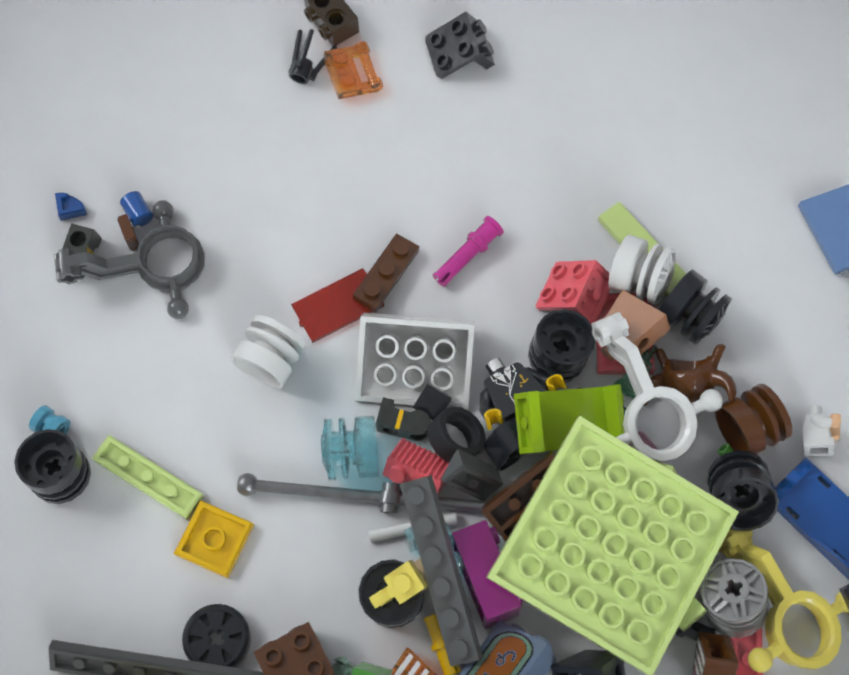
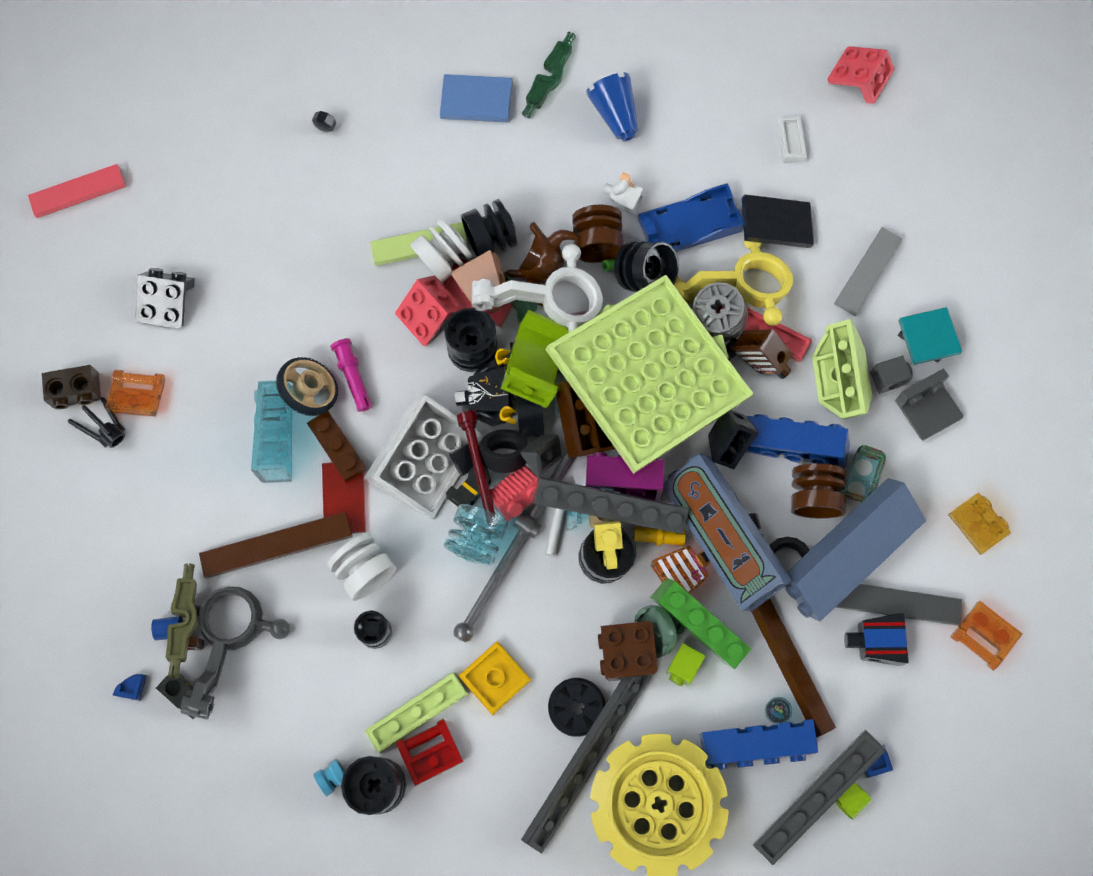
camera: 65 degrees left, 5 degrees up
(104, 515) = (433, 760): none -> red plate
(130, 218) = (179, 633): none -> olive piece
(210, 393) = (372, 629): none -> black wheel
(261, 266) = (275, 545): none -> reddish brown tile
(369, 206) = (272, 435): none -> clear light blue wedge
(410, 224) = (306, 386): none -> tan wheel
(469, 383) = (468, 421): none -> dark red piece
(724, 97) = (323, 121): none -> black tile

